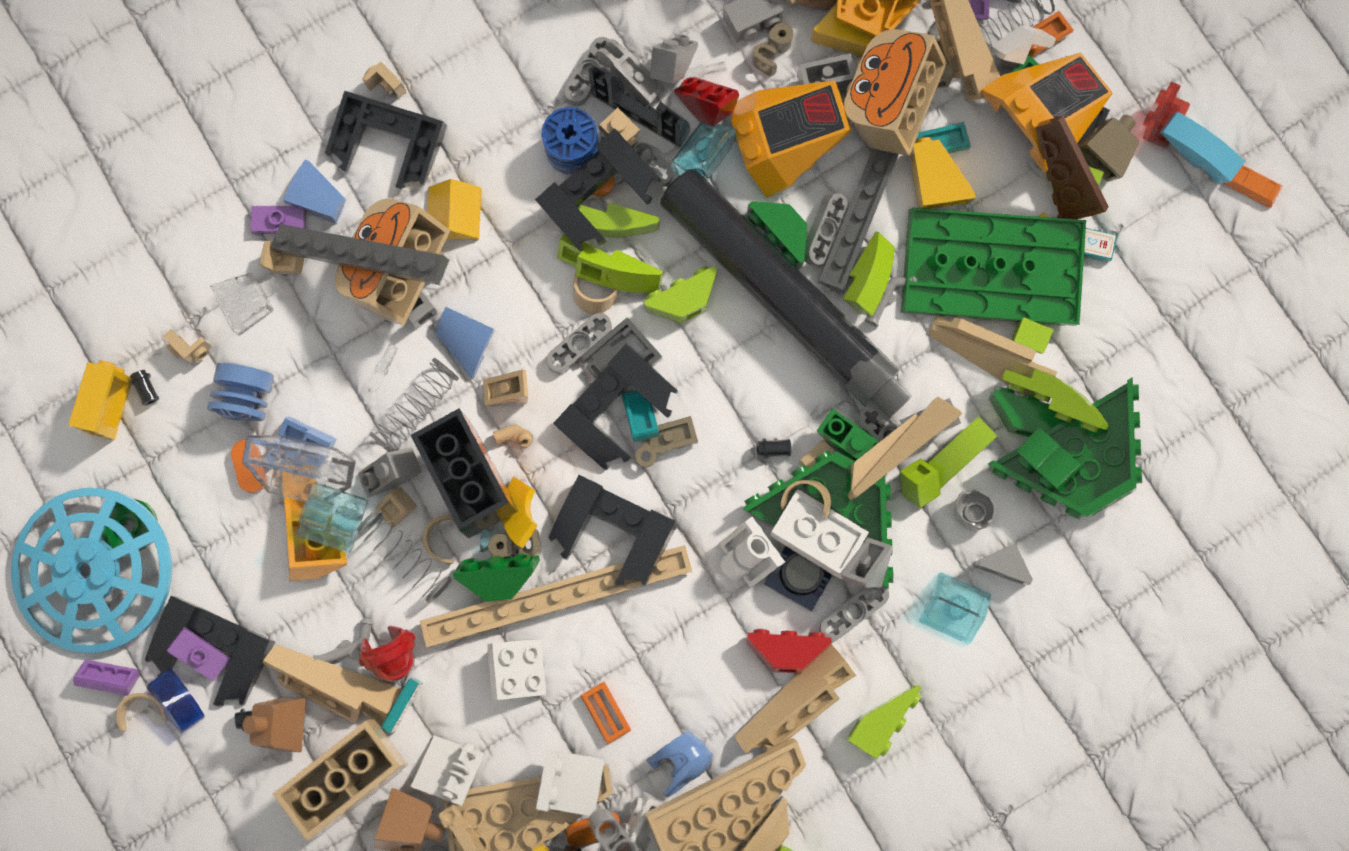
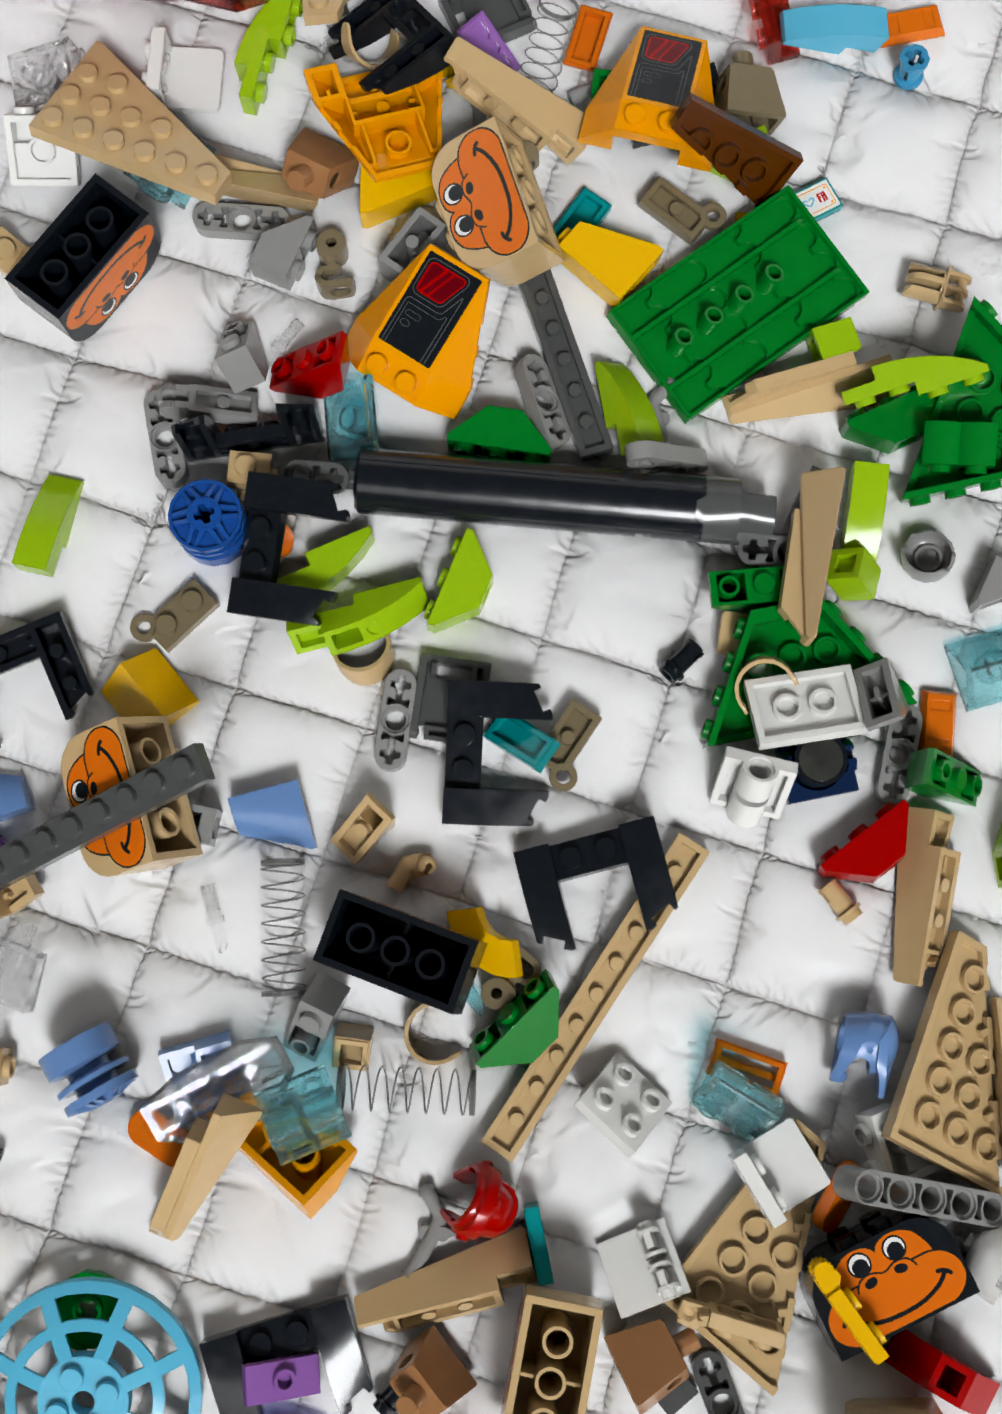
camera: 40 degrees left, 0 degrees up
(254, 496) = (201, 1163): none -> tan wedge
(479, 67) = (48, 526): none -> lime slope
(507, 180) = (176, 617): none -> dark tan hinge
(579, 724) = (736, 1103): none -> clear light blue plate
(743, 665) = (840, 902): none -> tan pin
(867, 321) = (665, 457): none -> light grey beam
(867, 646) = (942, 777): none -> green slope
(892, 614) = (938, 723): none -> orange tile
(1007, 183) = (679, 211): none -> dark tan hinge
(1017, 44) = (574, 64): white slope -> none
(1121, 351) = (932, 286): none -> tan arm
(1229, 210) = (914, 70): none -> dark azure bush

